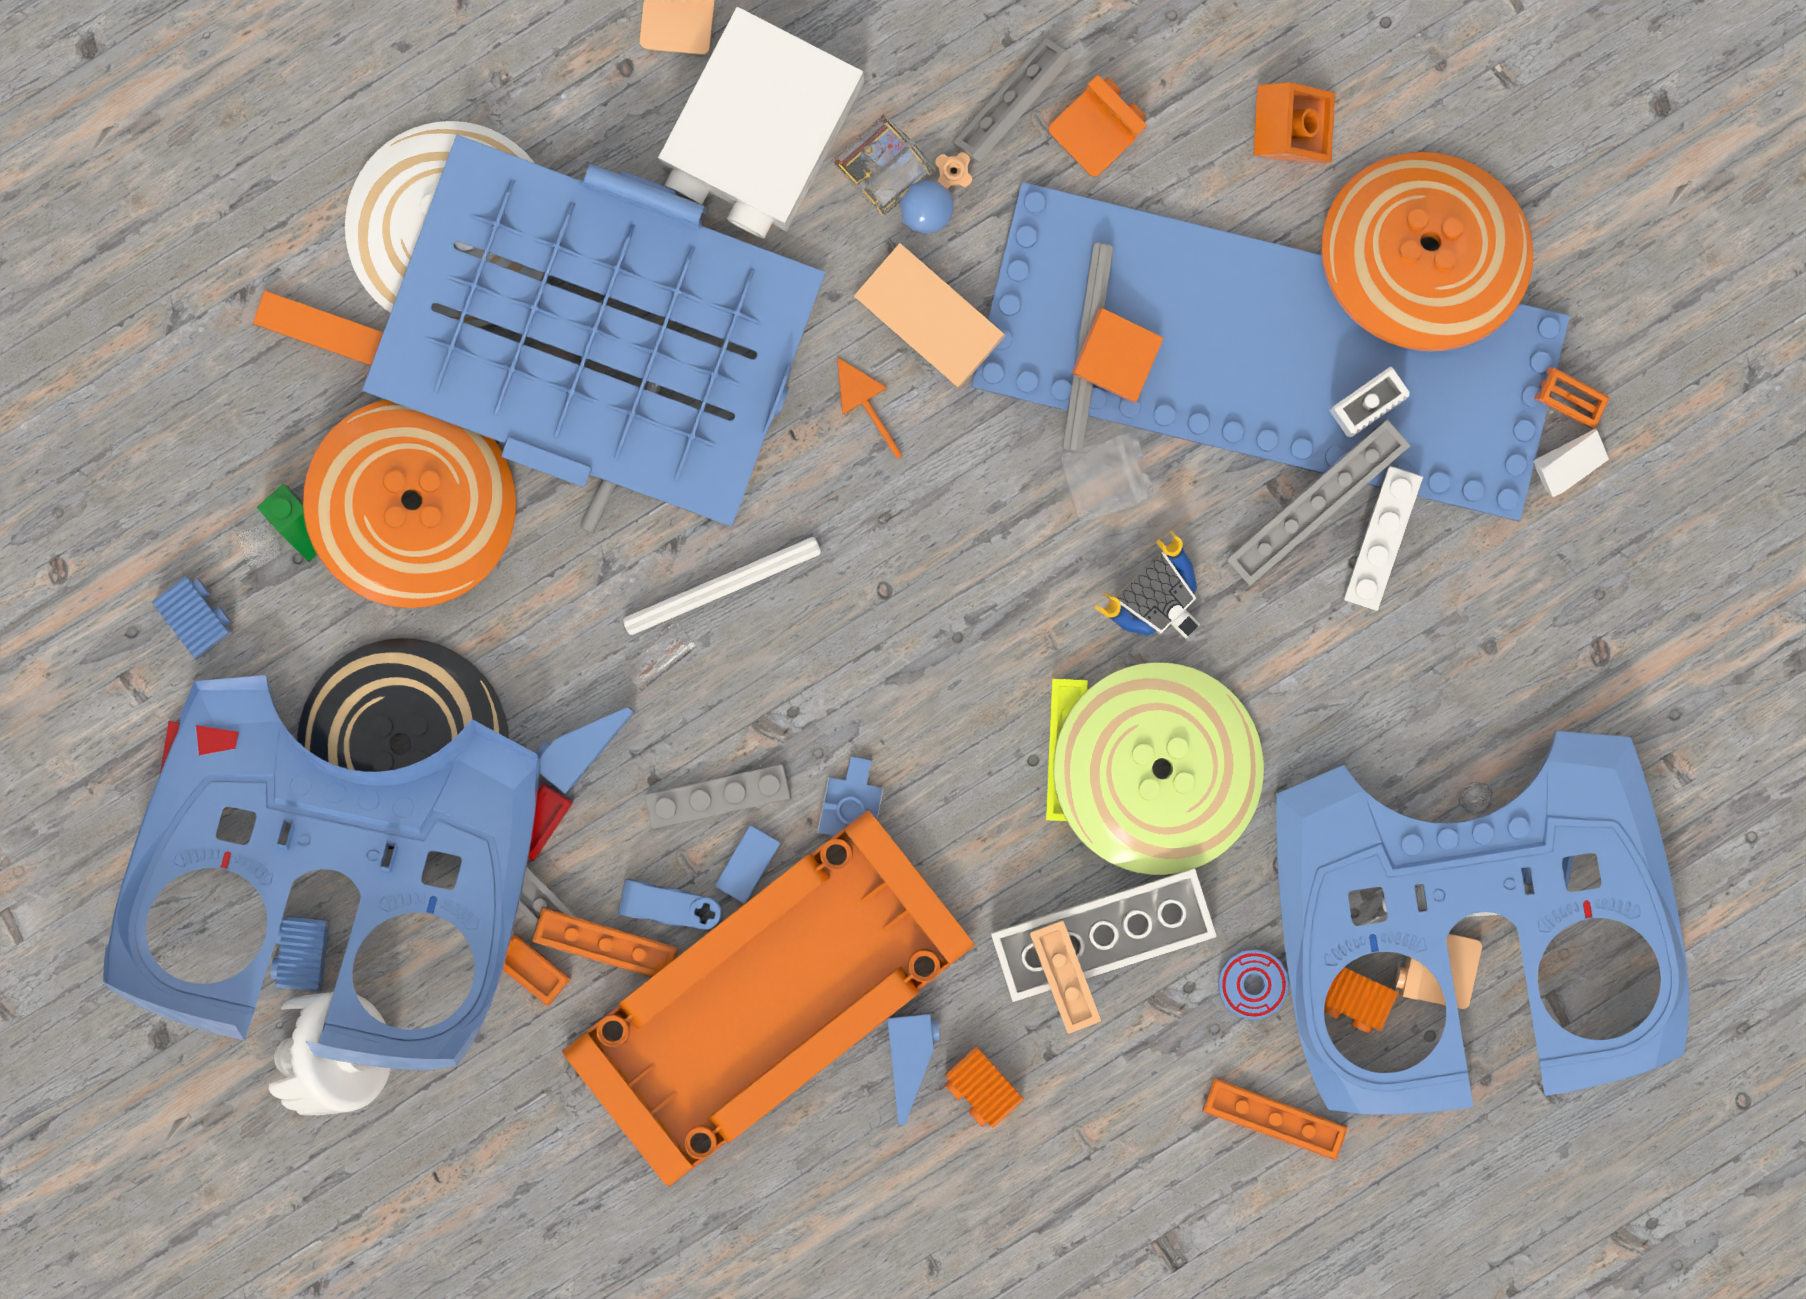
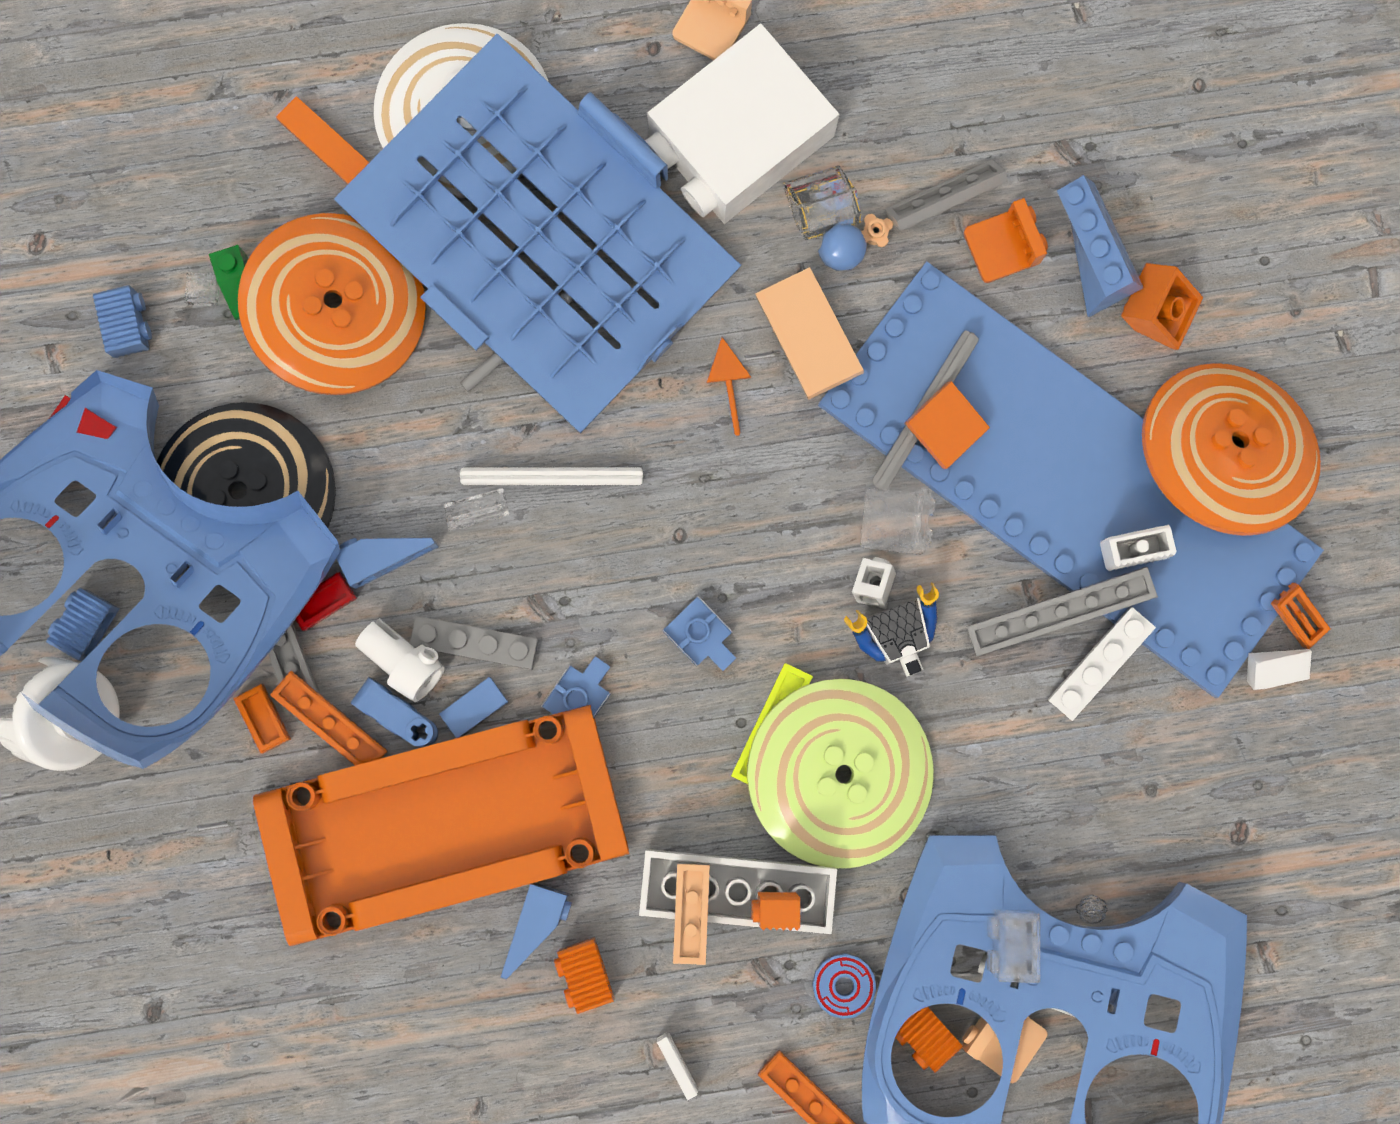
camera: 15 degrees right, 5 degrees down
(666, 851) = (409, 668): none -> white piece
(951, 685) = (700, 633): none -> medium blue piece
(1099, 548) = (869, 572): none -> white brick
(1117, 1136) = (677, 1065): none -> white tile
(1149, 936) = (776, 910): none -> orange brick
(1207, 96) = (1101, 256): none -> medium blue wedge
(1403, 868) = (1015, 945): none -> clear piece

